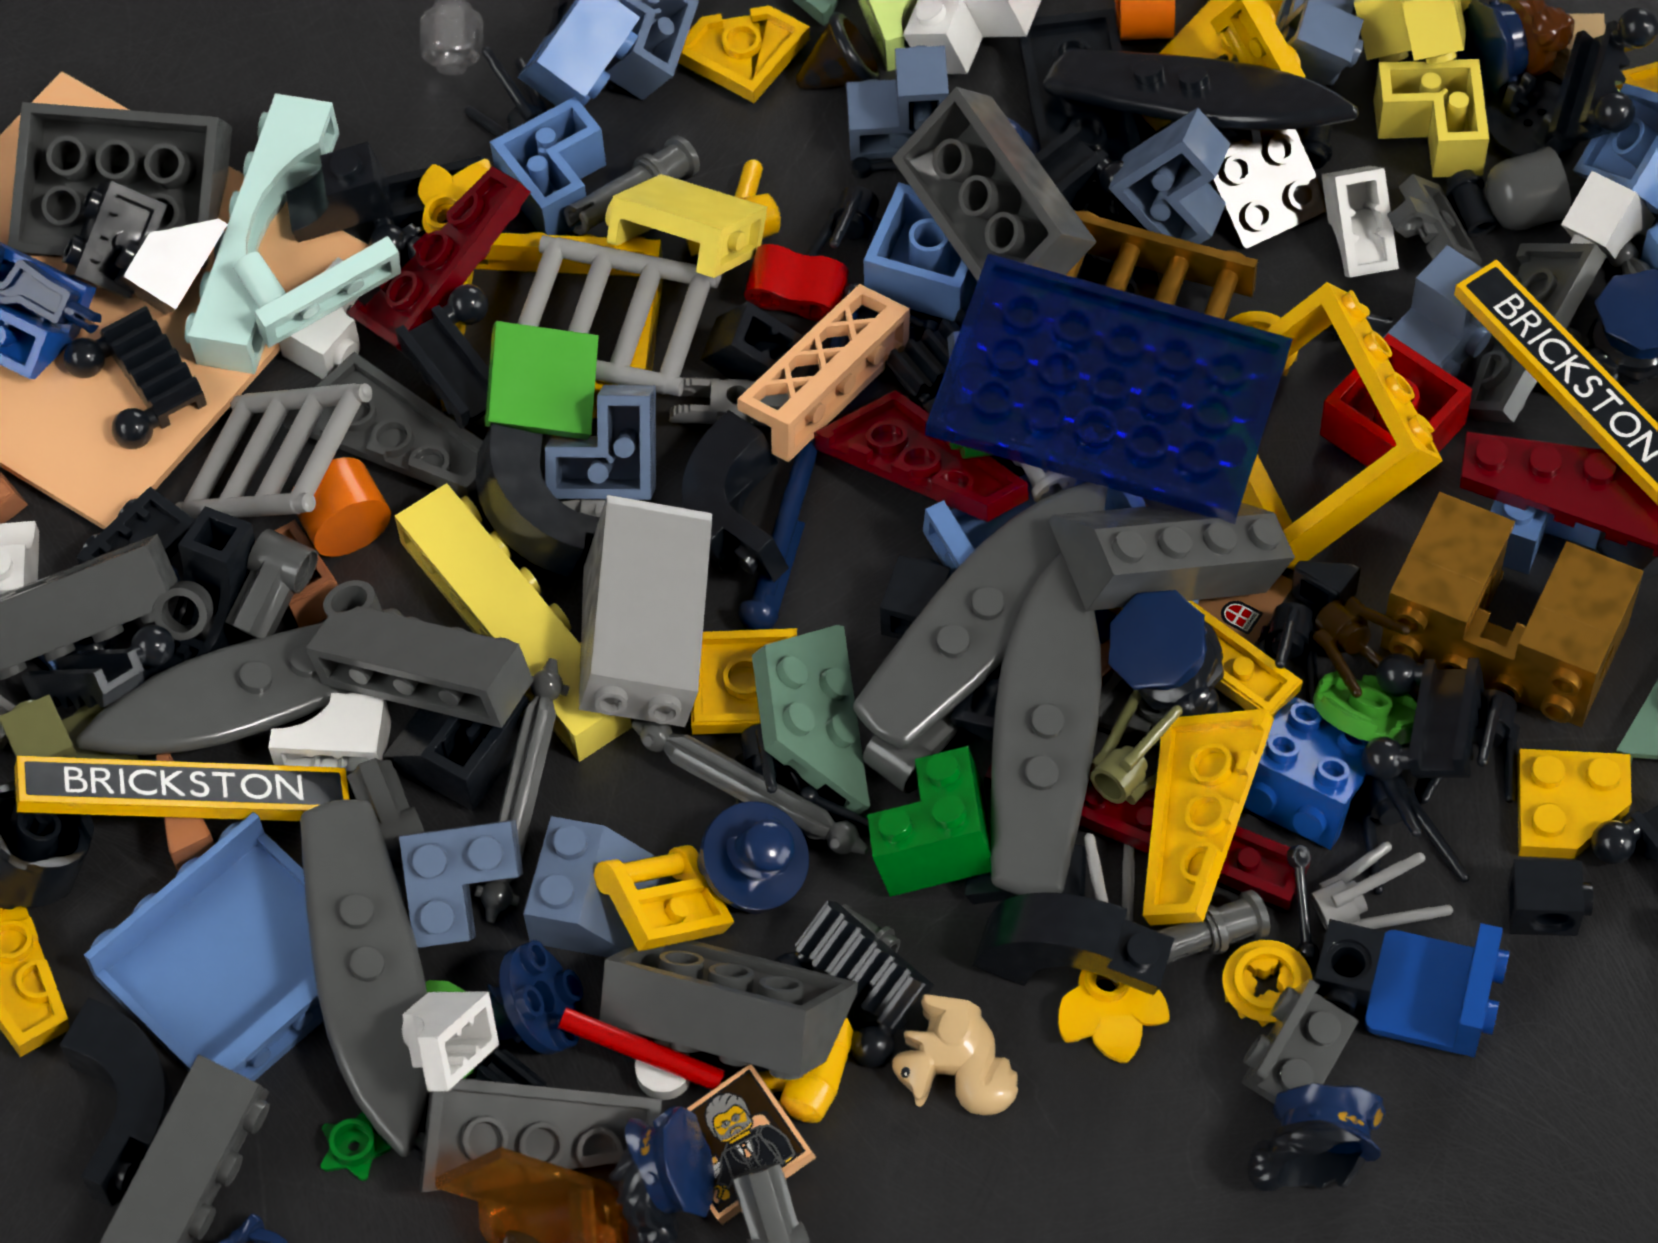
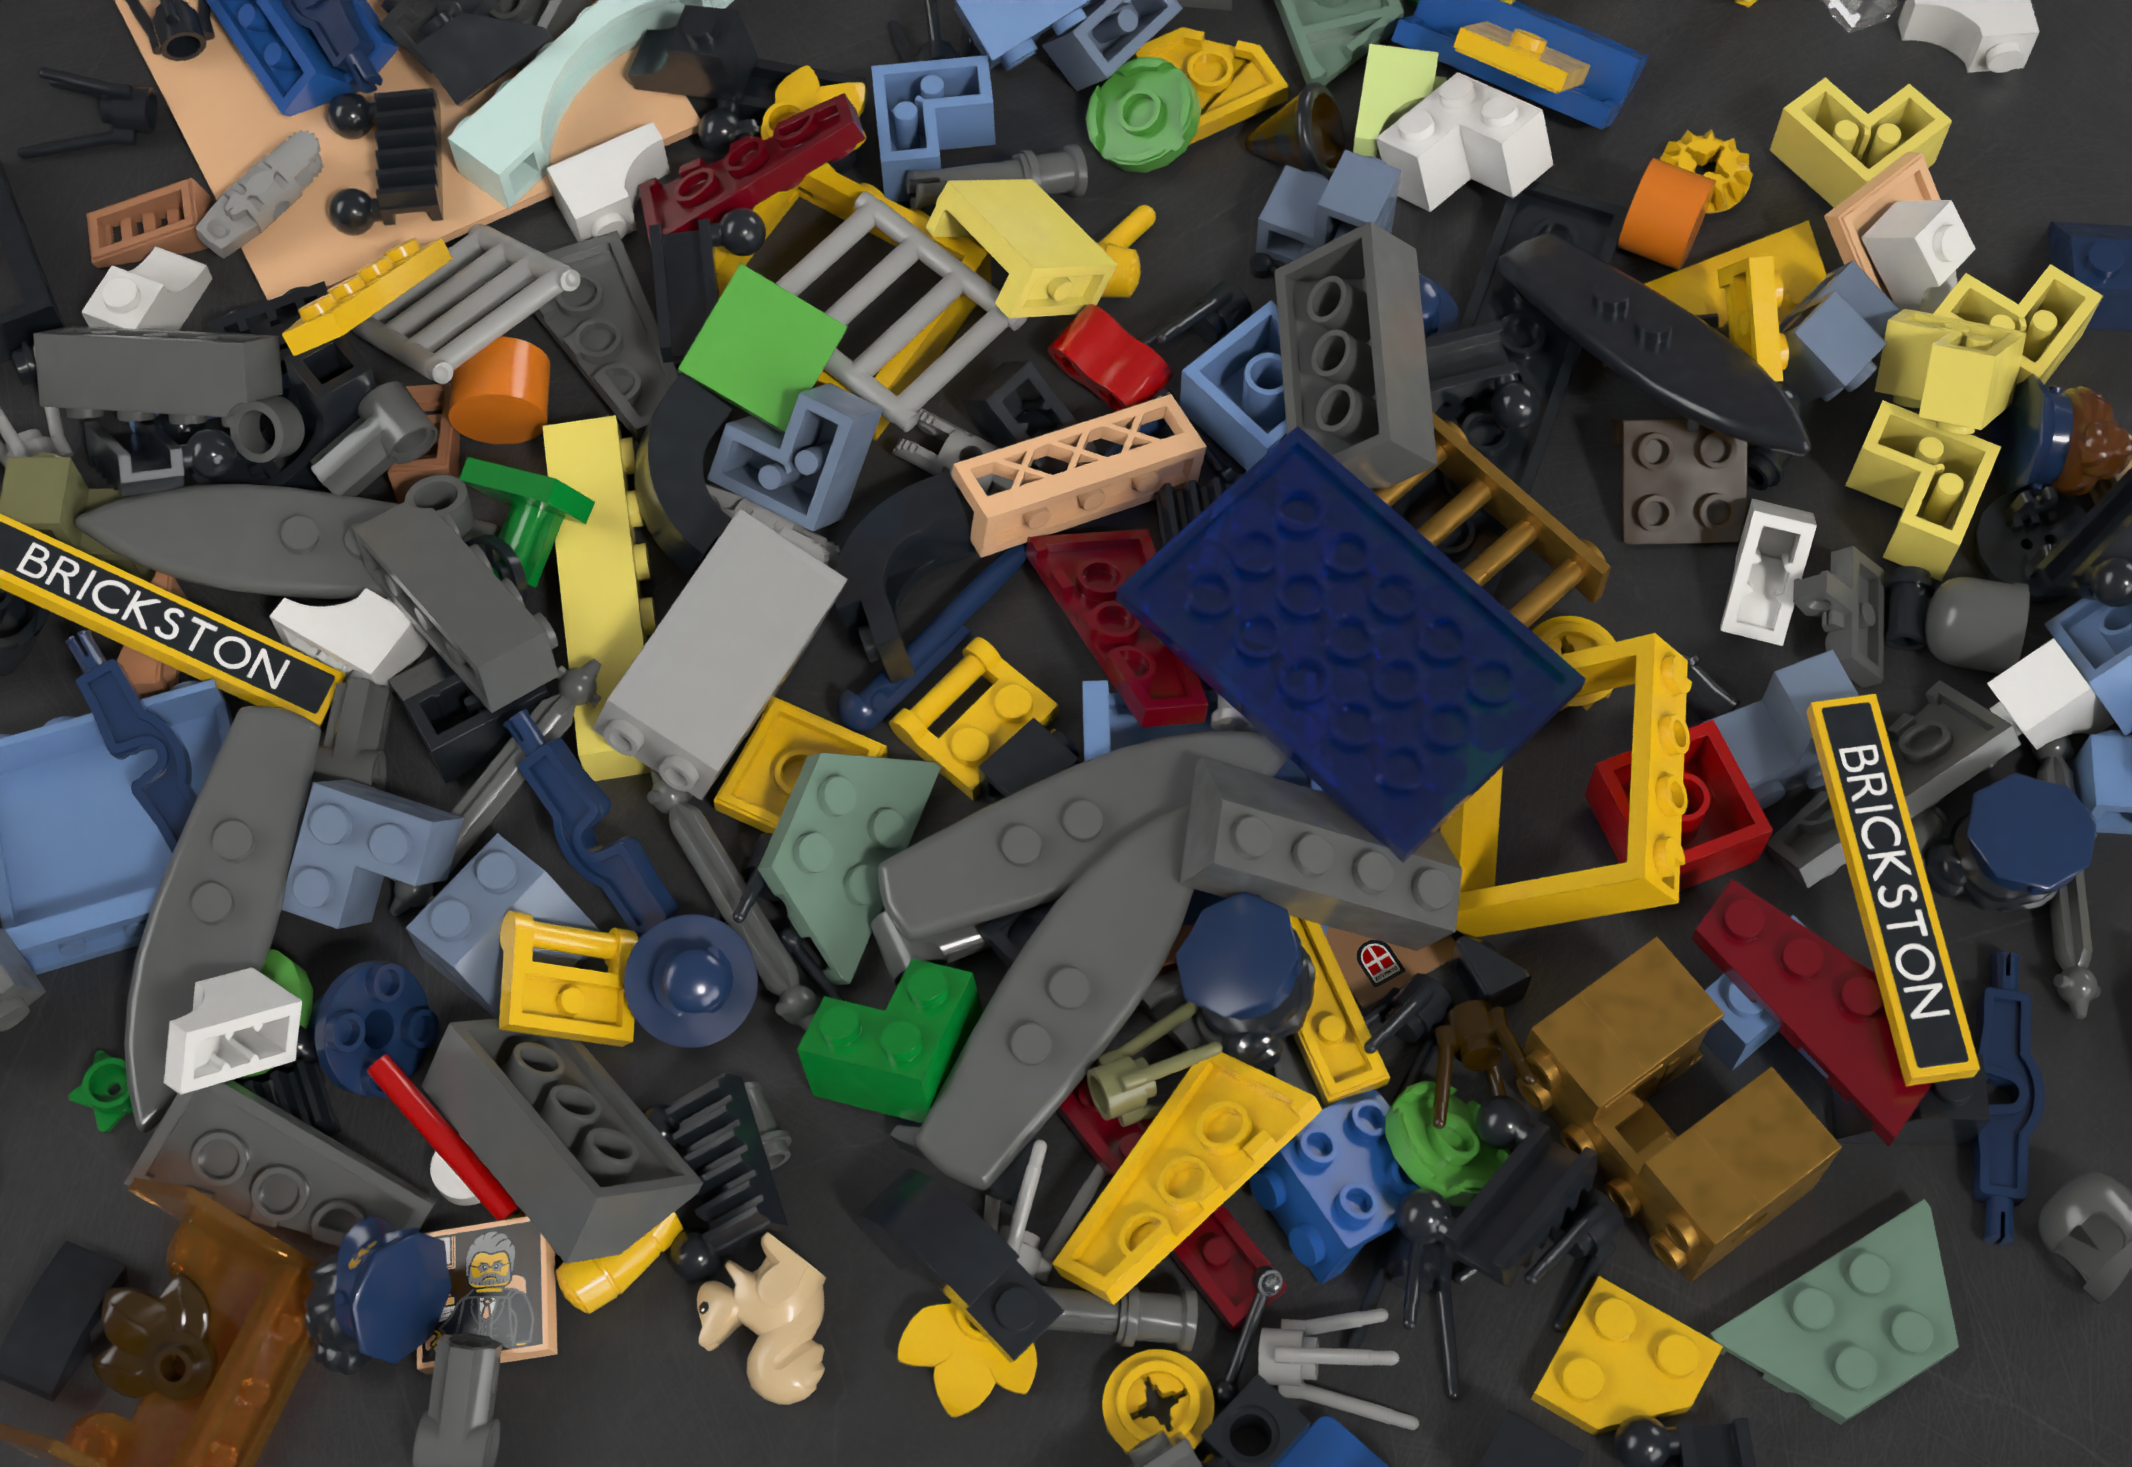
camera: 25 degrees right, 5 degrees up
(53, 445) = (261, 194): none -> light grey hinge
(206, 475) = (365, 293): none -> yellow wing
(215, 874) = (130, 729): none -> dark blue piece
(287, 313) = (562, 158): light aqua piece -> none
(428, 577) = (532, 522): none -> green piece
(599, 770) = (576, 809): none -> dark blue piece
(711, 94) = (1143, 115): none -> bright green tile
(860, 585) = (984, 726): none -> yellow plate
(1169, 178) = (1566, 434): sand blue brick -> none

